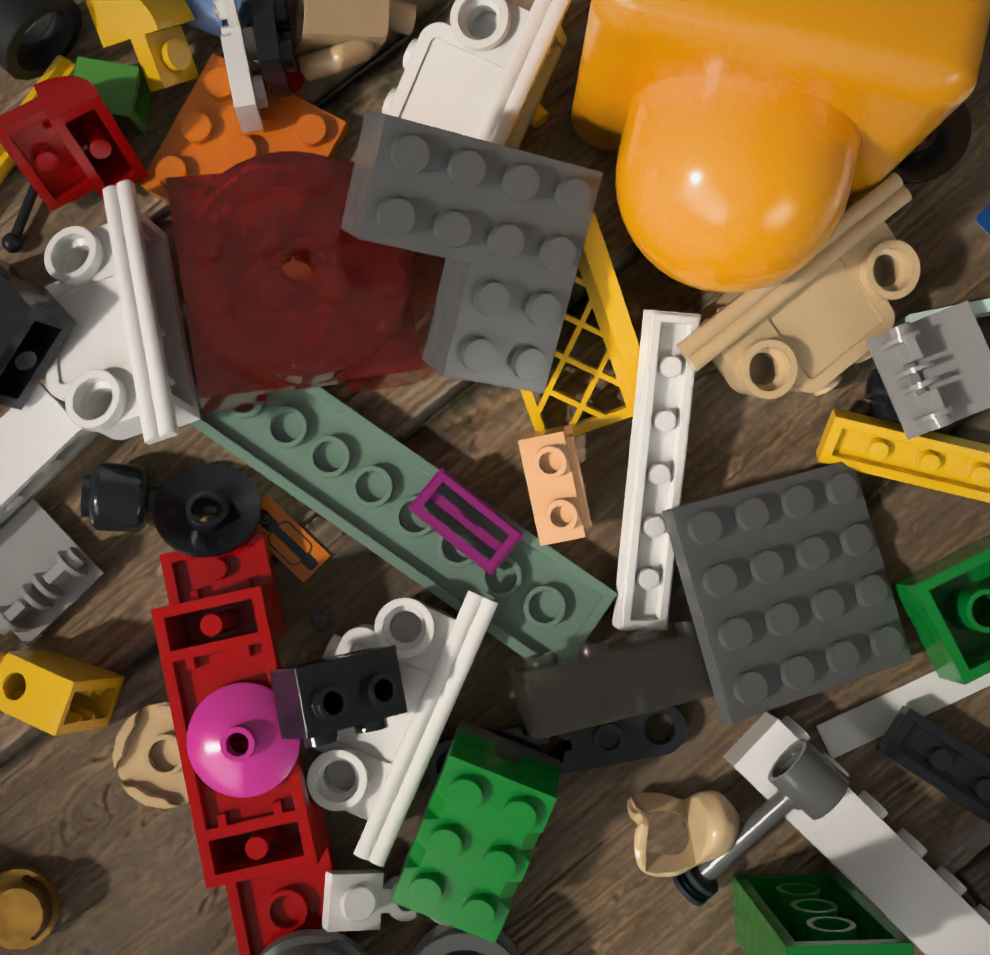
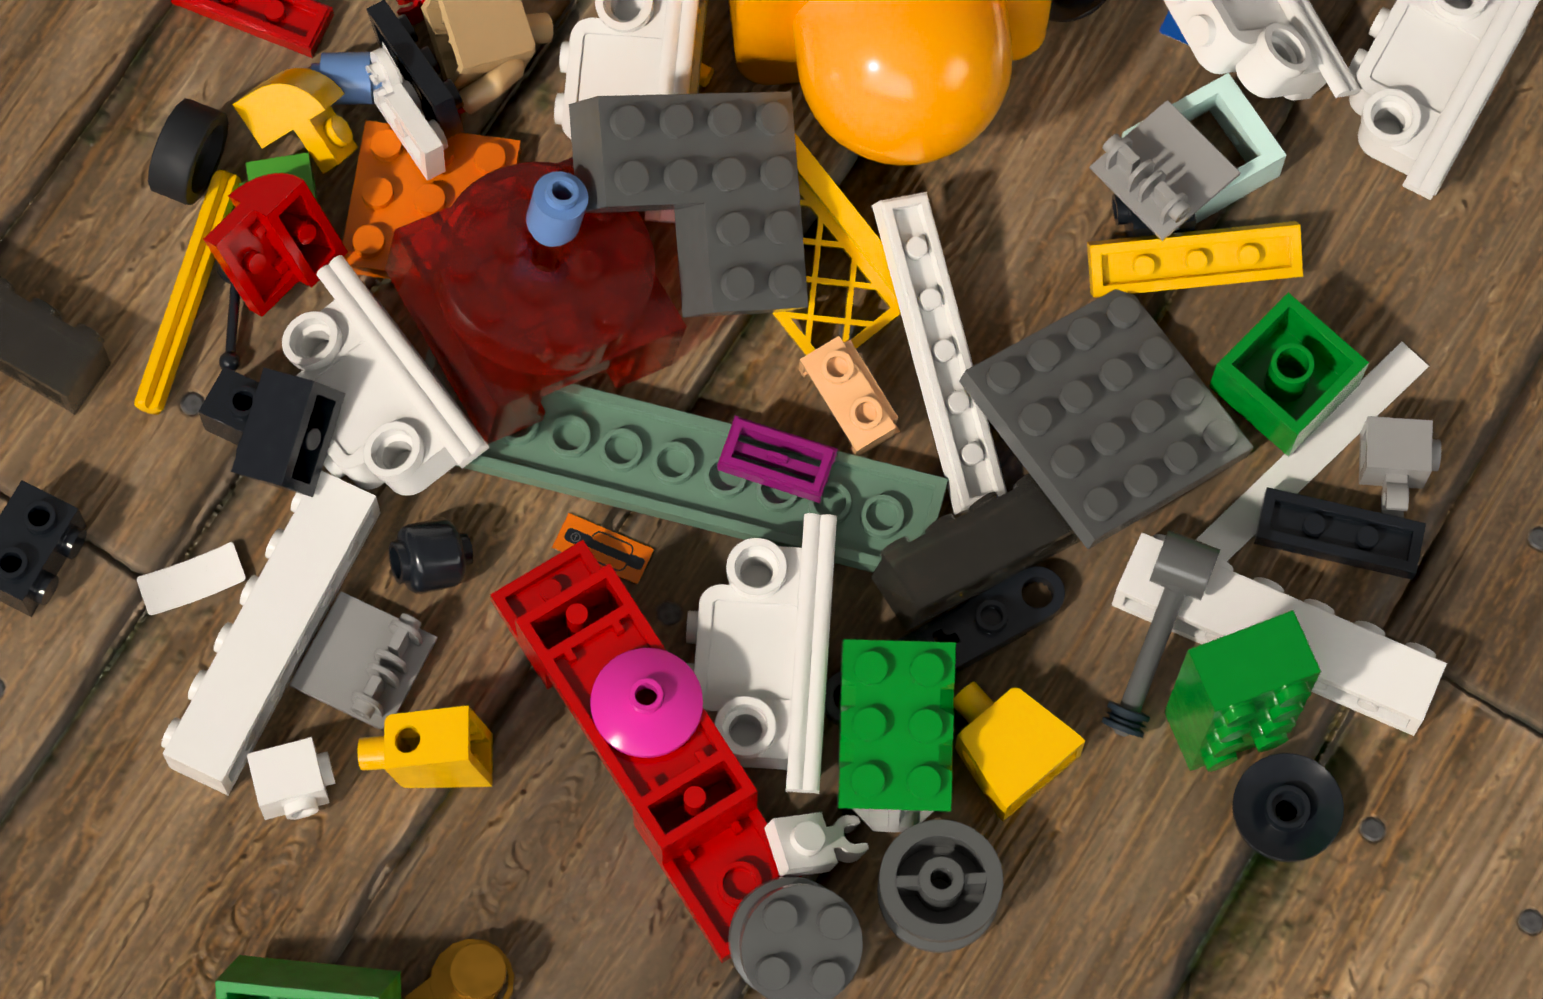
camera: 20 degrees left, 15 degrees down
(150, 758) = (562, 789): tan tile -> none
(204, 492) = (521, 537): black dish -> none
(313, 235) = (556, 208): none -> medium blue brick
(338, 694) = (720, 629): black brick -> none
(582, 873) = (1012, 745): none -> yellow torso
(710, 826) = (1114, 655): tan piece -> none
(819, 318) = (1032, 160): tan brick -> none

